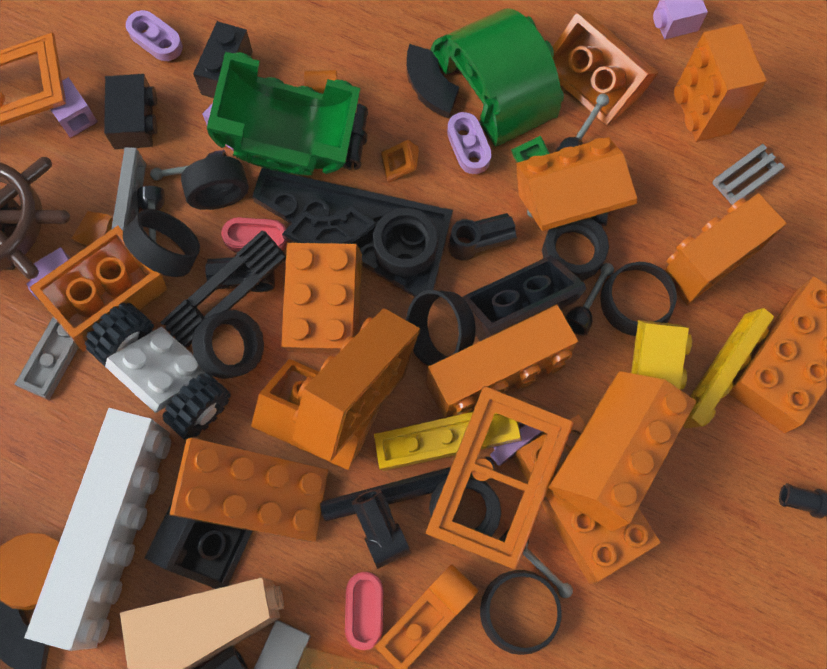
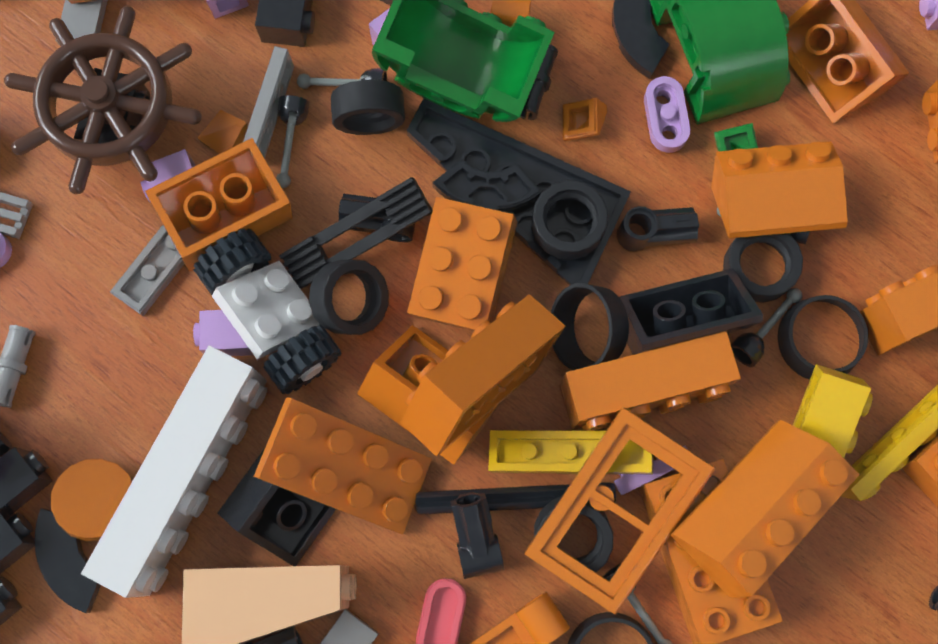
camera: 15 degrees right, 5 degrees up
(118, 396) = (218, 332): none -> lavender brick
(153, 254) = (284, 179): black tyre -> none
(240, 231) = (388, 169): coral tile -> none
(602, 100) = (792, 138): light grey hinge -> none

